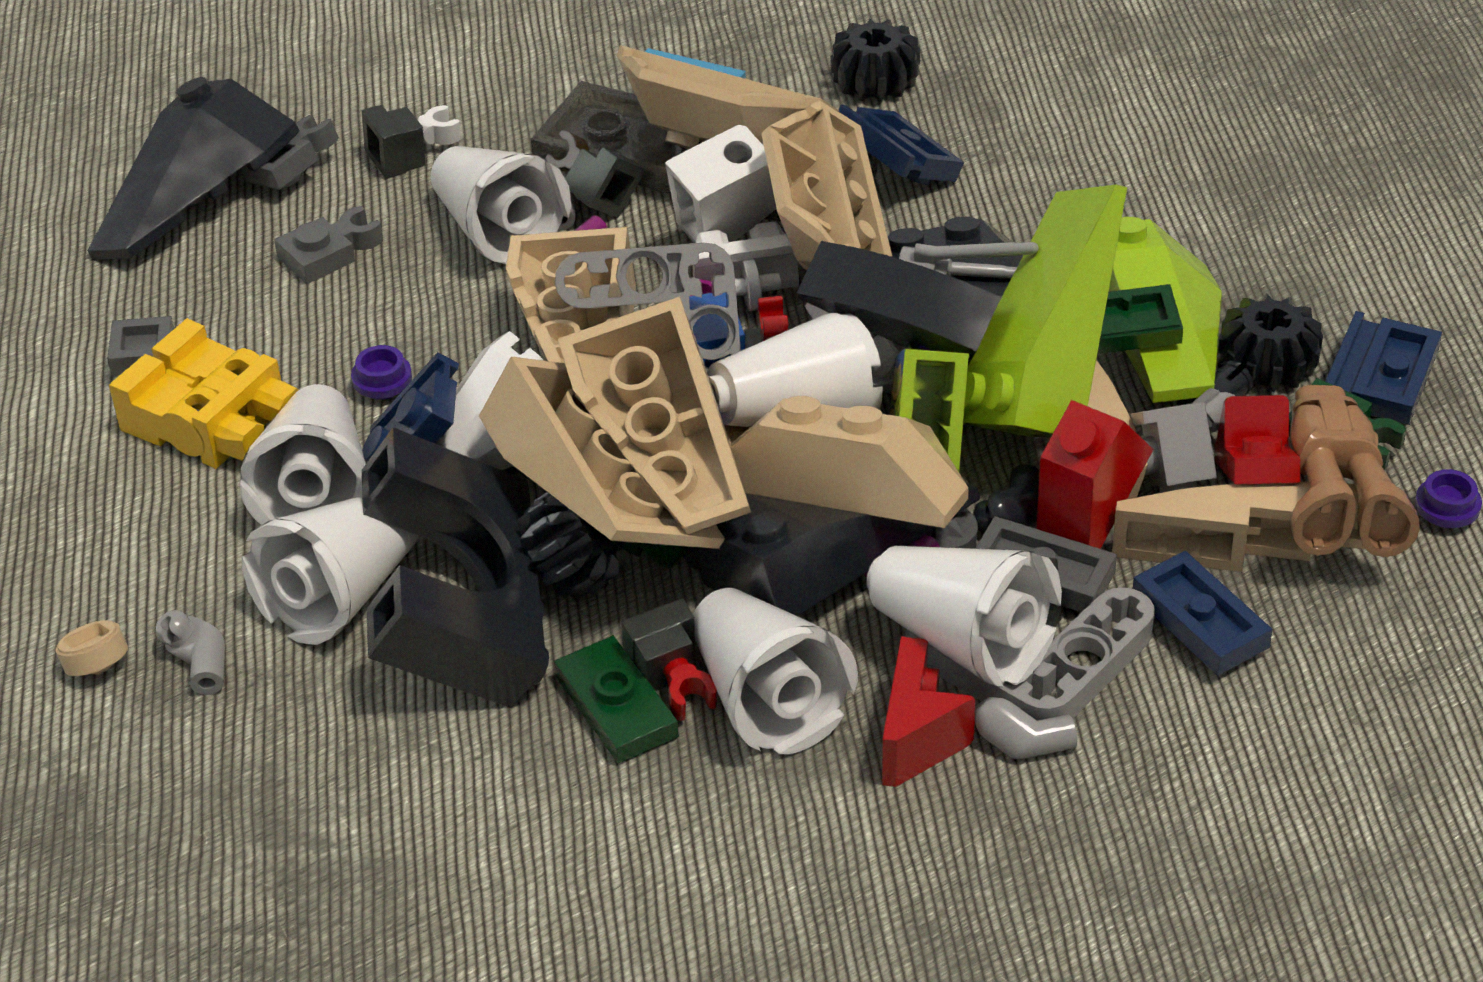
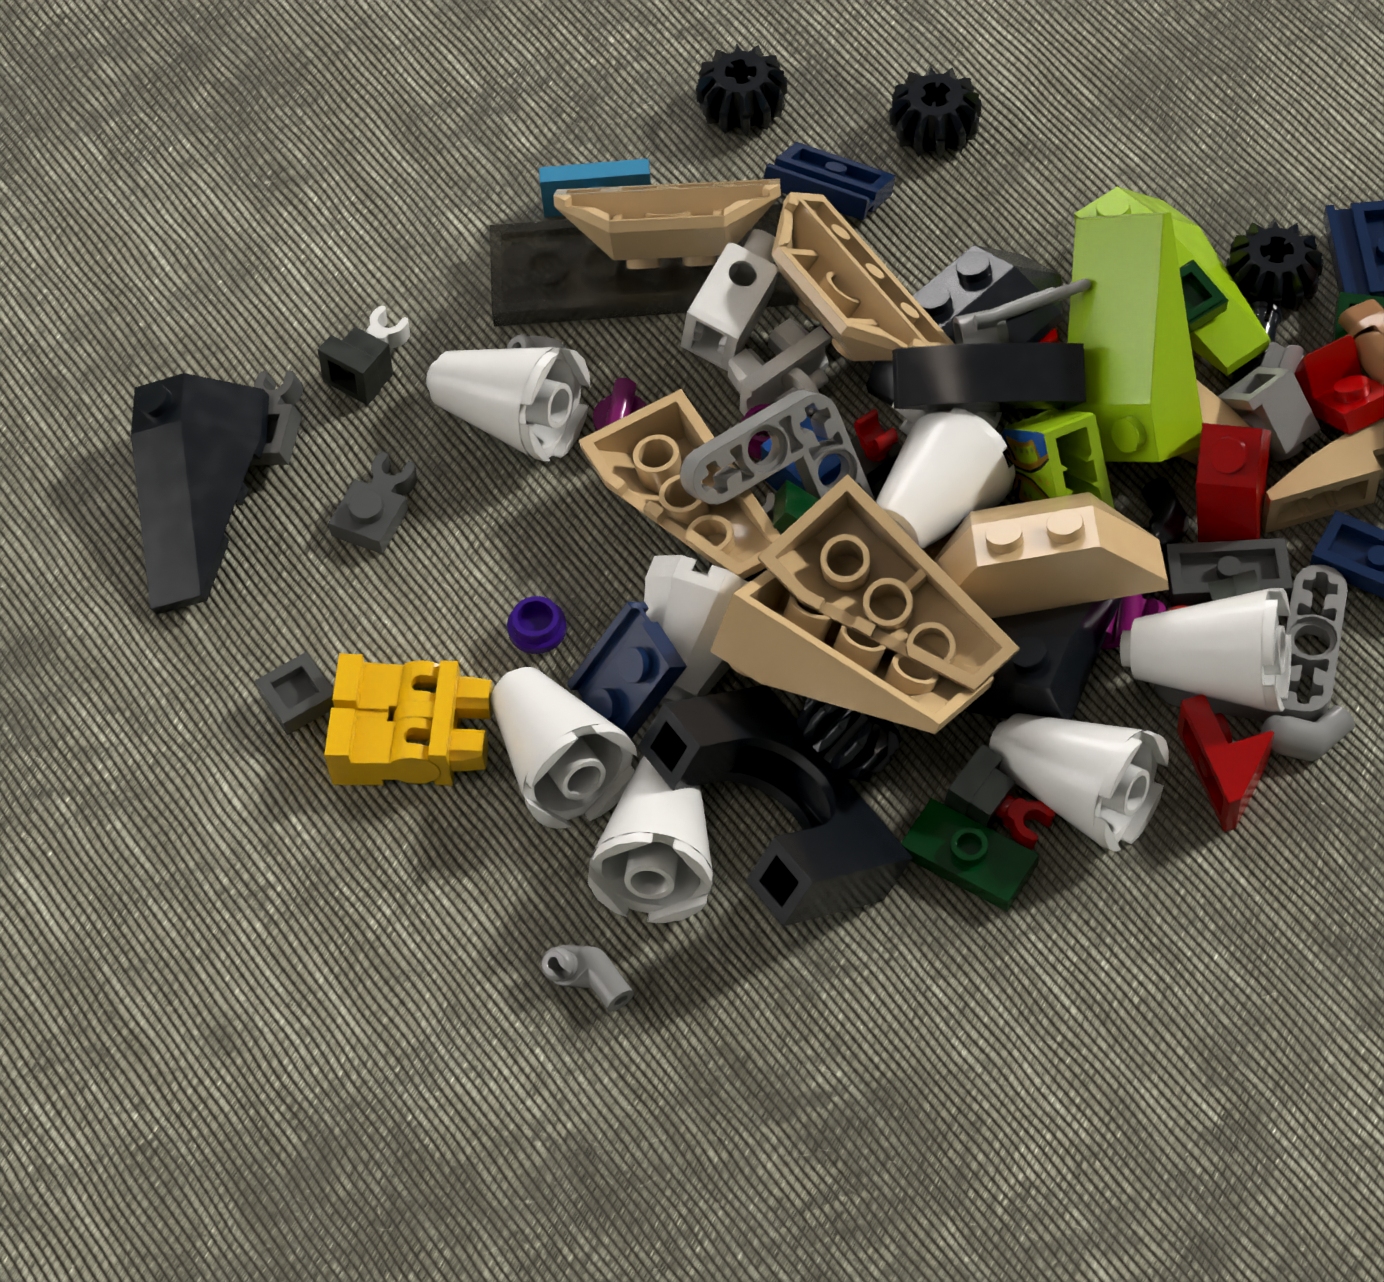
camera: 25 degrees left, 15 degrees up
(91, 648) = (499, 1015): tan tile -> none
(598, 180) = (589, 331): pearl dark grey piece -> none
(1035, 128) = (935, 112): none -> black gear

